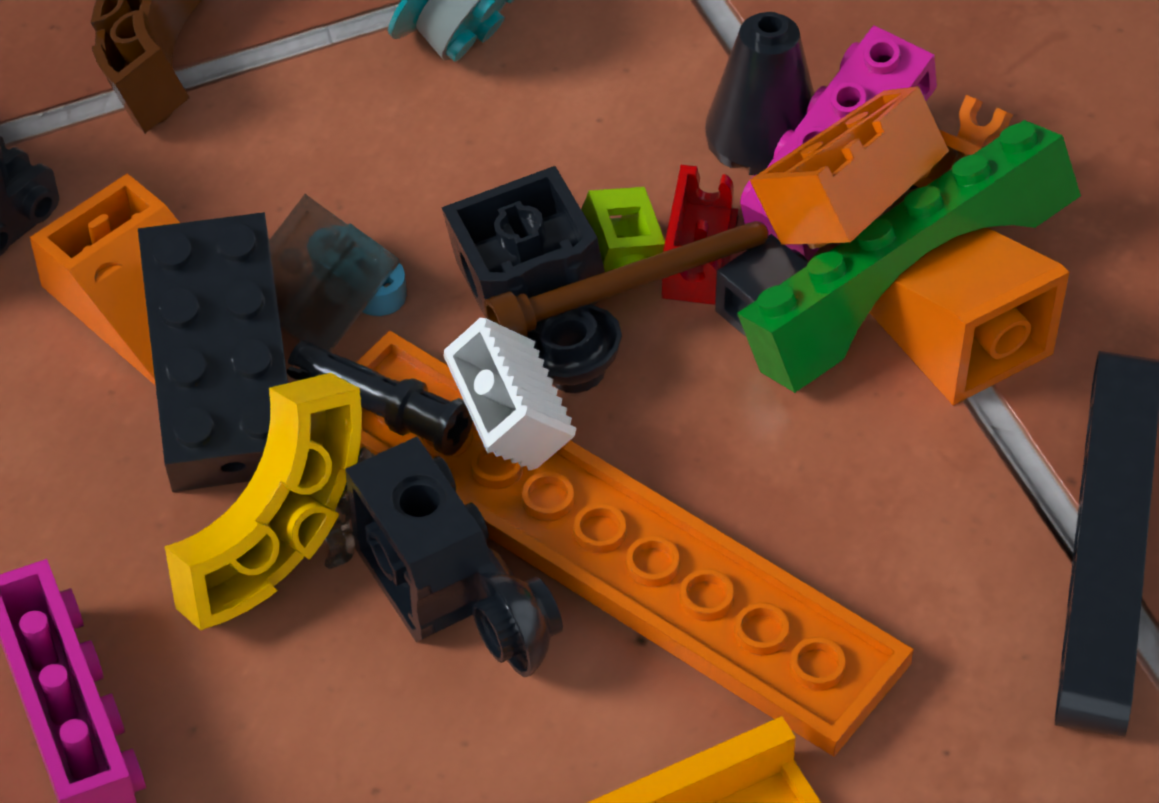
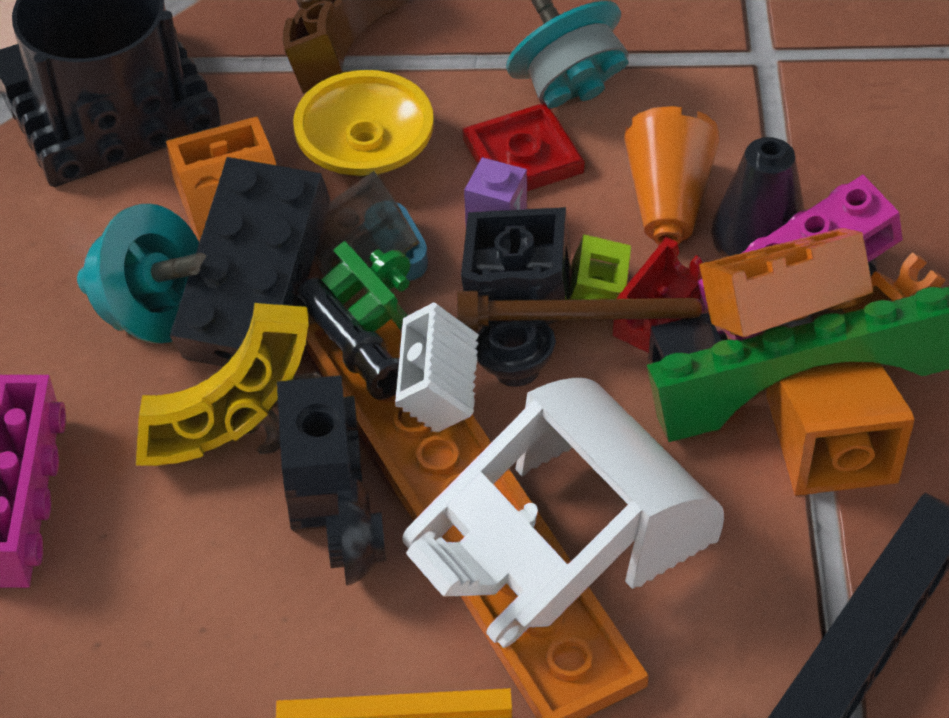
camera: 25 degrees right, 0 degrees up
(91, 403) = (141, 270): none -> teal piece
(251, 143) = (363, 122): none -> yellow dish
(393, 340) = (379, 303): none -> green hips
(446, 121) = (529, 141): none -> red tile
(450, 173) = (496, 188): none -> medium lavender brick
(639, 88) = (670, 168): none -> orange cone
(699, 559) = (664, 514): none -> white piece

